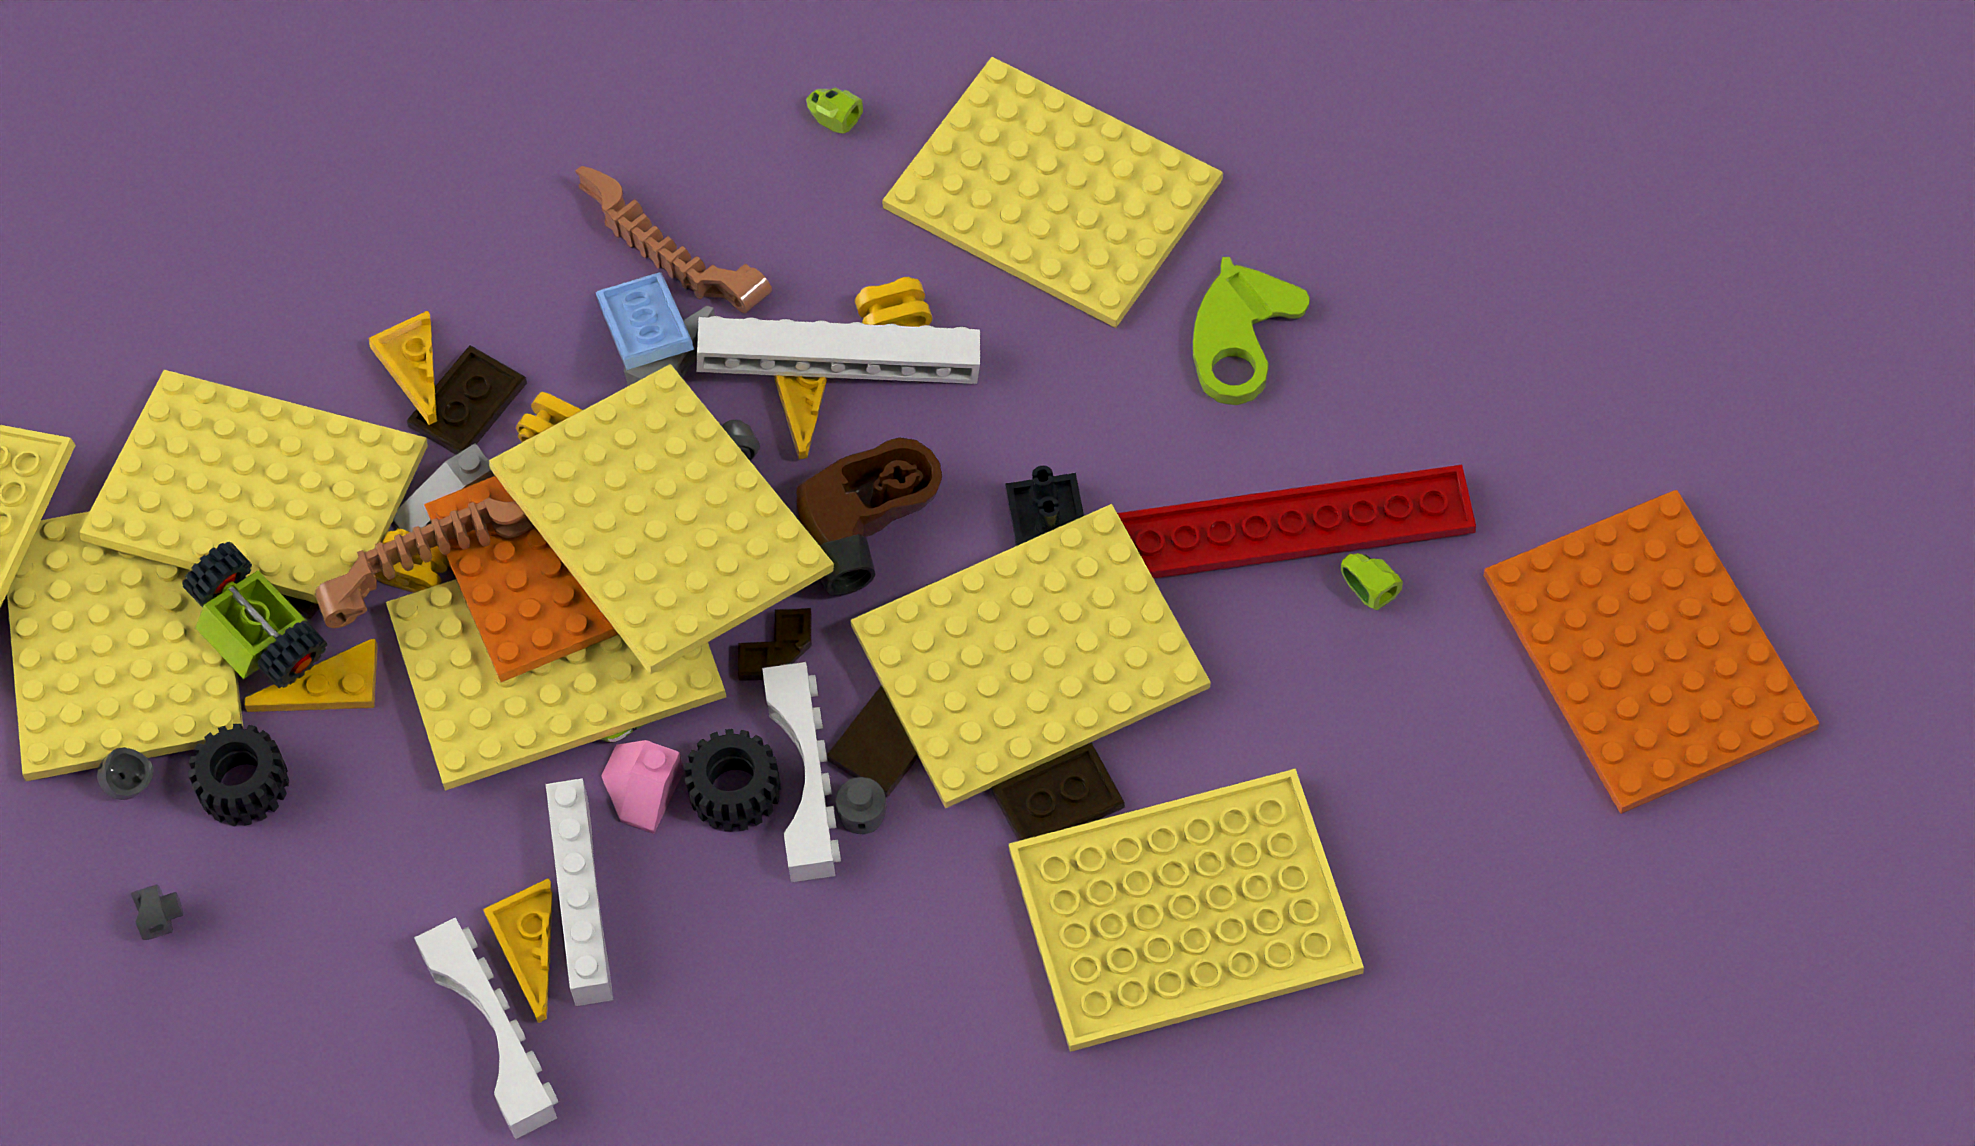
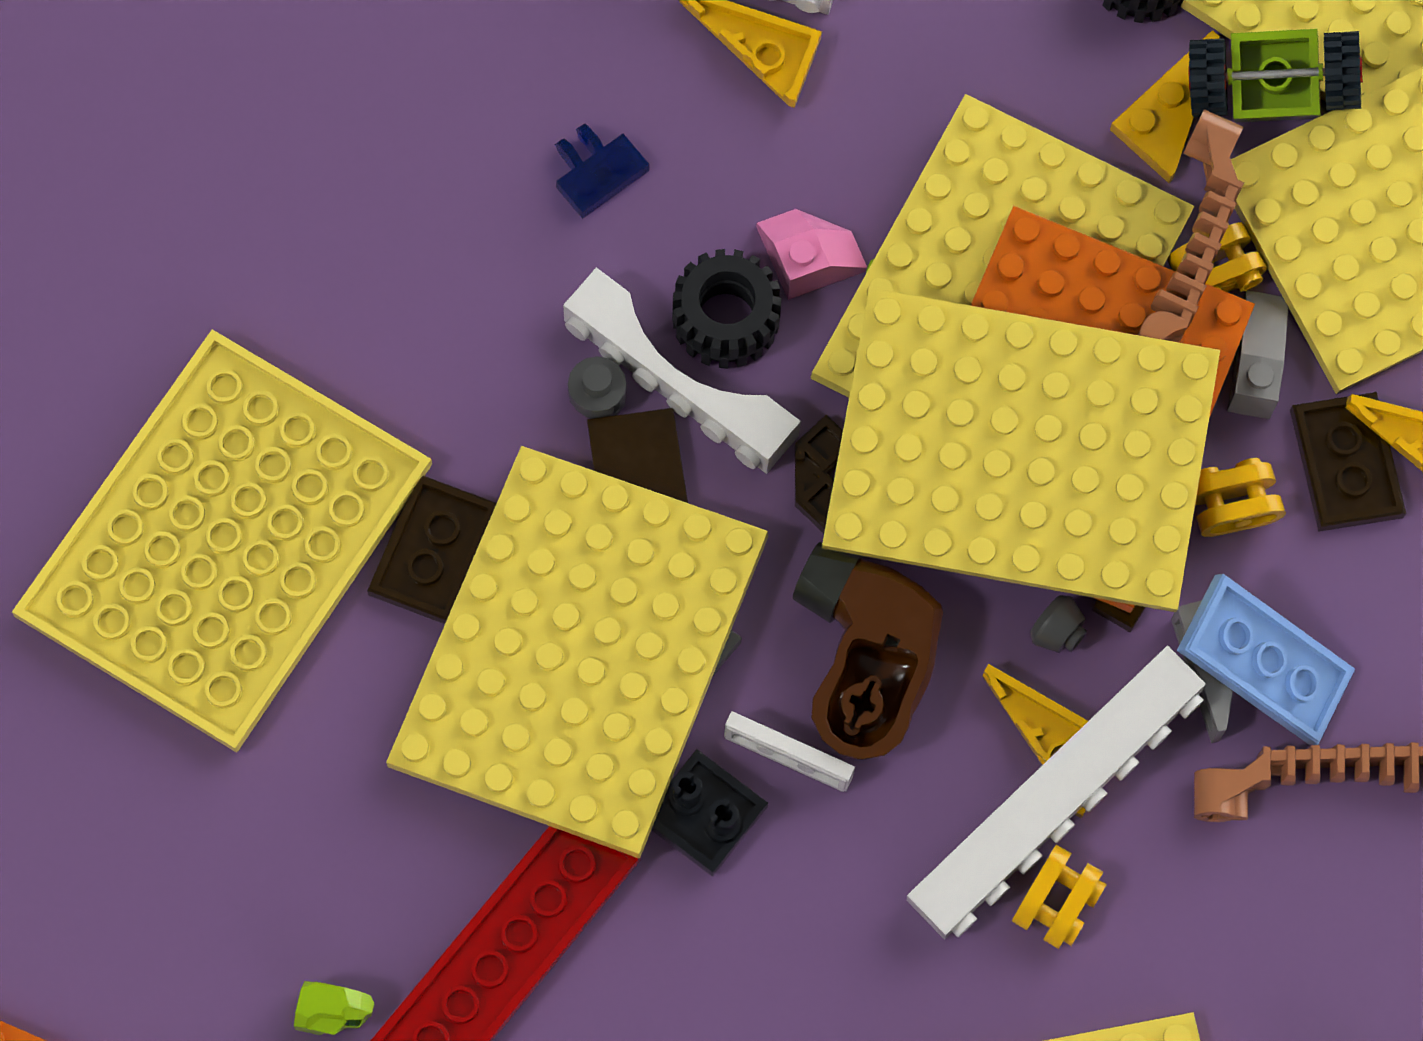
camera: 130 degrees right, 10 degrees up
(578, 892) = (811, 145): white arch -> none
(716, 945) = (600, 175): none -> clear blue hinge
(964, 503) = (788, 752): none -> white tile

